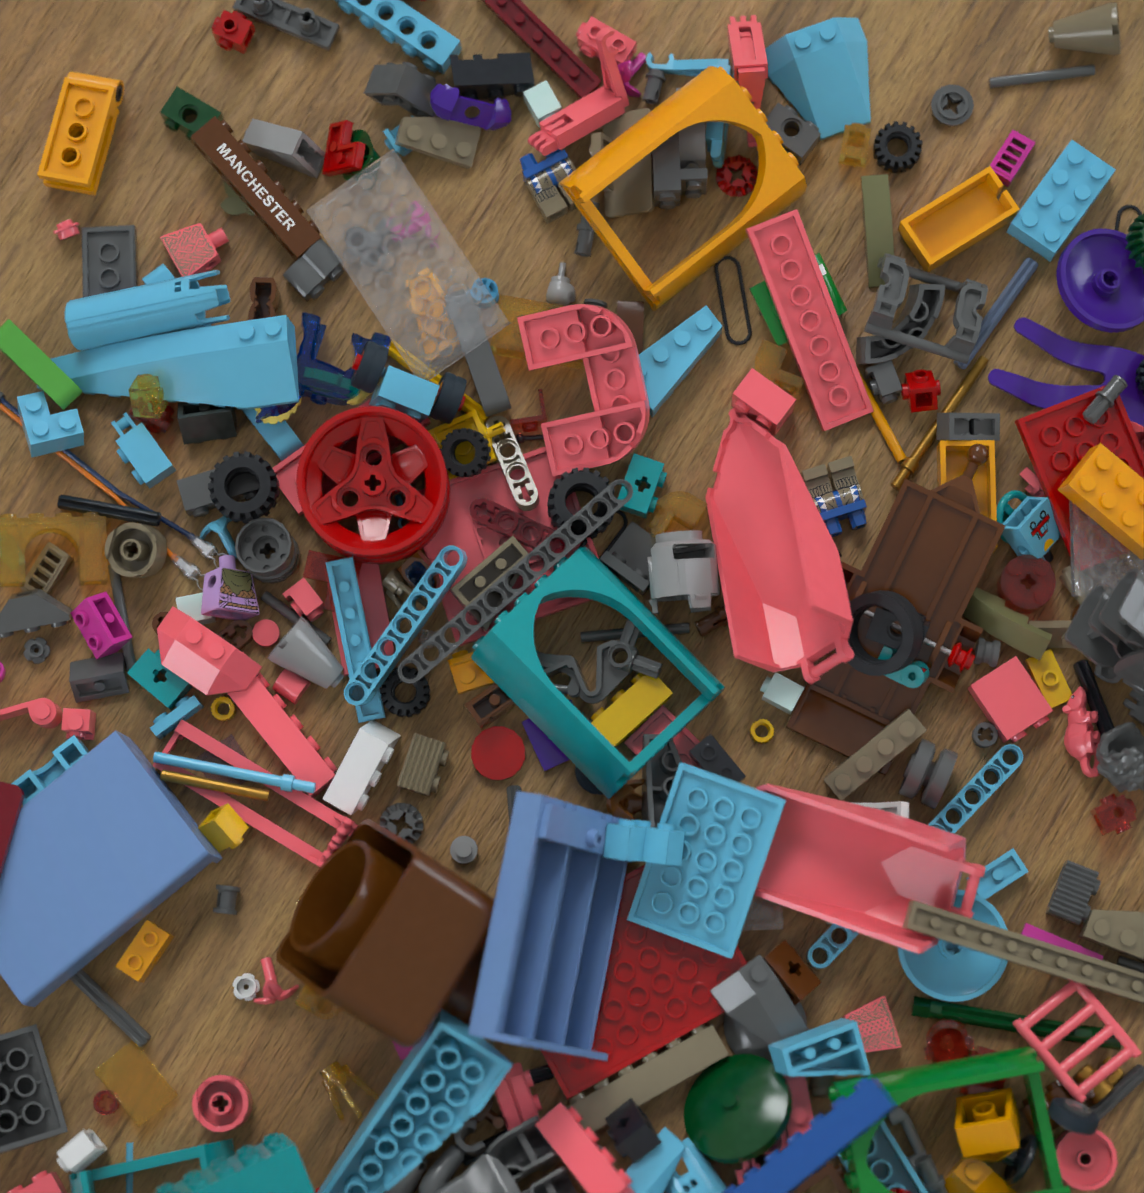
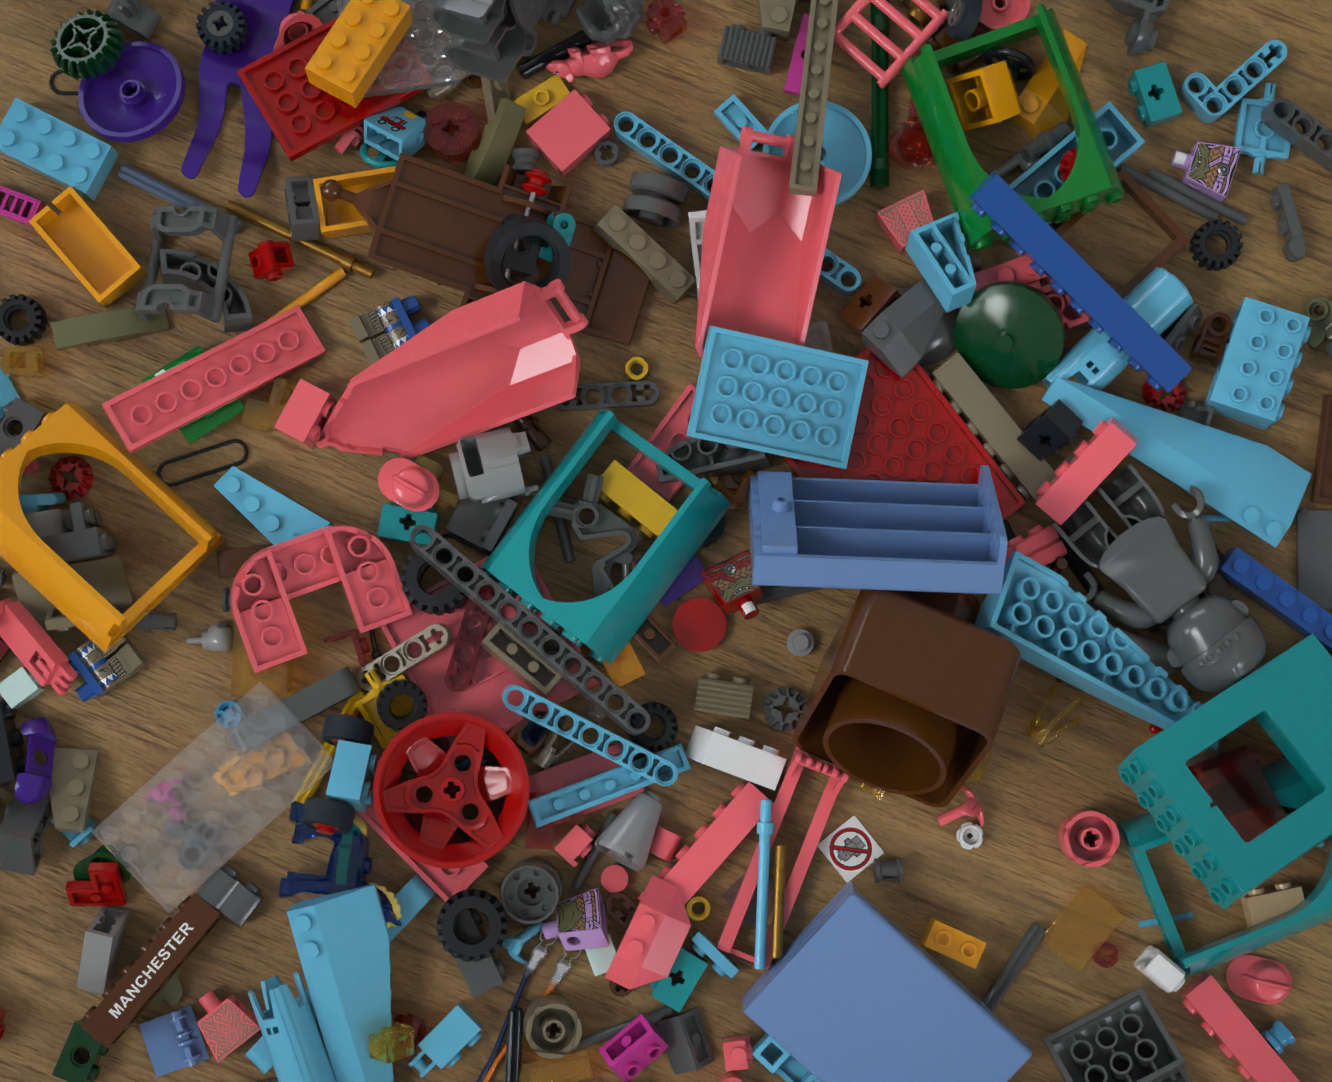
camera: 105 degrees left, 5 degrees up
(187, 201) = (174, 1041): none -> medium blue hinge
(206, 422) = (409, 978): pearl dark grey brick -> none
(223, 828) = (819, 885): yellow brick -> none
(254, 867) = (850, 848): none -> sticker
(265, 298) = (270, 939): reddish brown brick -> none
(534, 780) = (732, 585): none -> torso
(640, 842) = (773, 458): medium azure brick -> none
(678, 490) = (408, 484): none -> coral piece
(714, 759) = (676, 406): black brick -> none
(737, 697) = (607, 400): none -> dark grey beam
(781, 692) = (596, 354): light aqua brick -> none
(884, 382) = (267, 298): dark grey brick -> none
(1104, 399) = (256, 75): dark grey axle -> none

